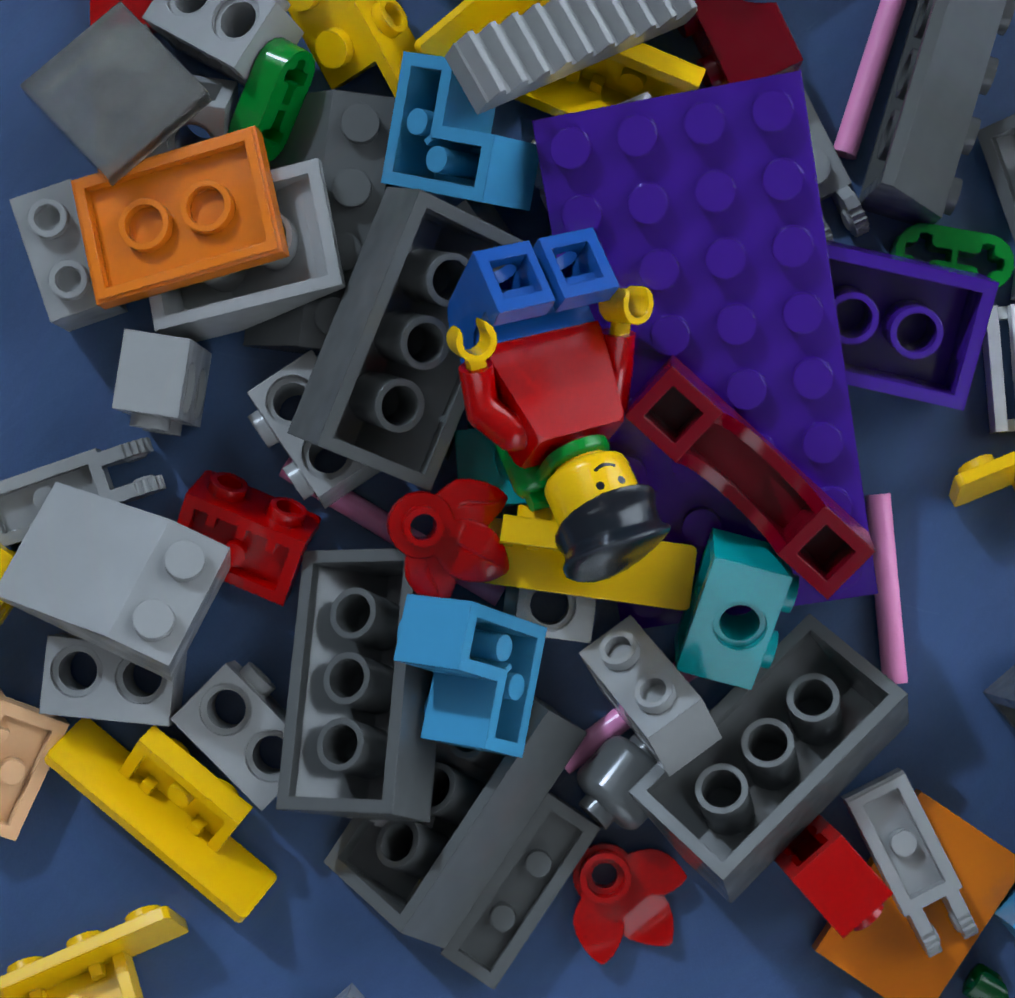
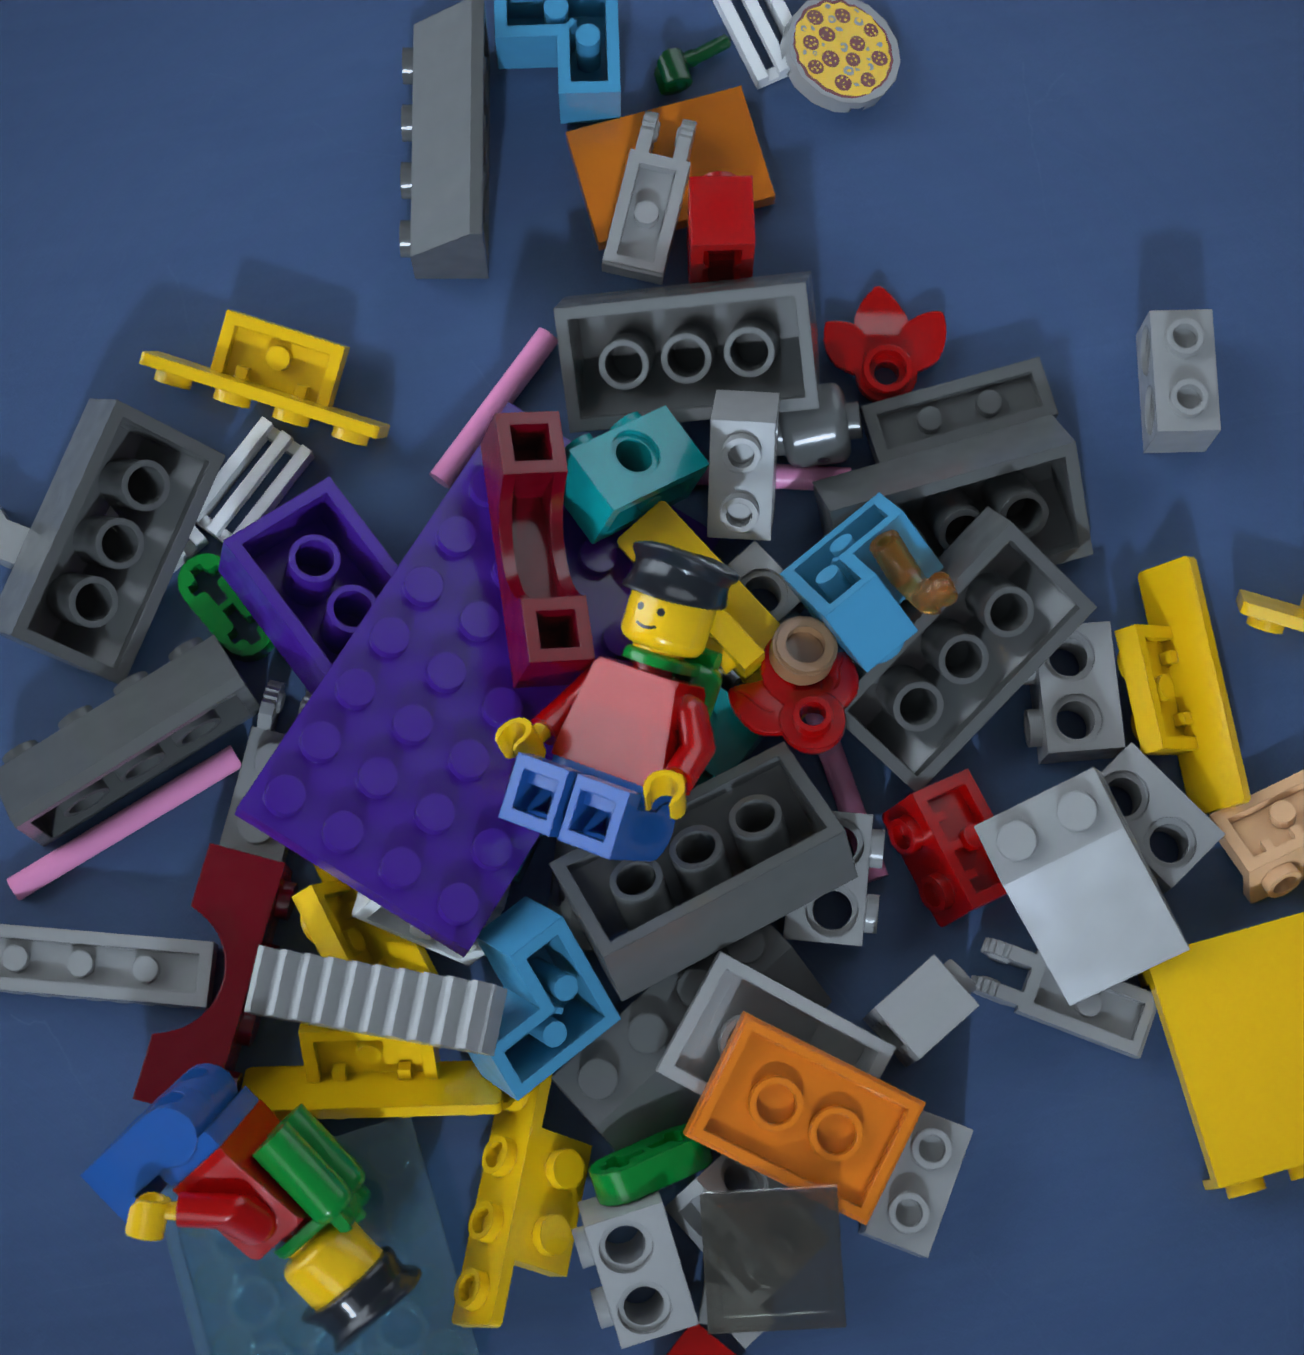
camera: 140 degrees left, 10 degrees down
(440, 700) = (904, 573): none -> clear orange arm
(474, 572) = (803, 650): none -> medium nougat tile

